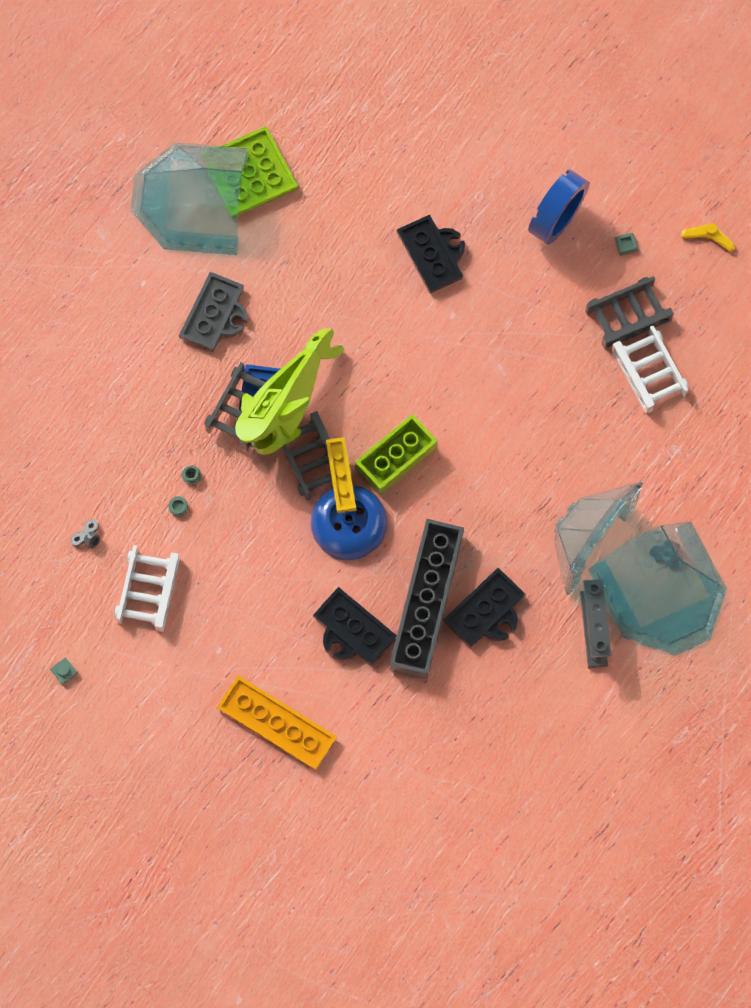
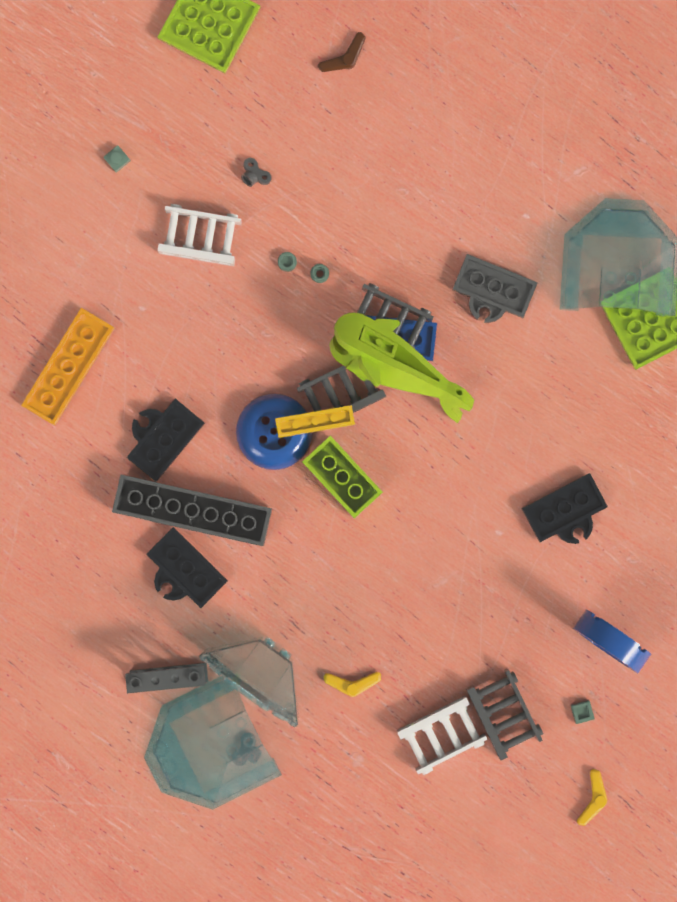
camera: 85 degrees right, 15 degrees up
(604, 450) = (352, 688): none -> yellow piece

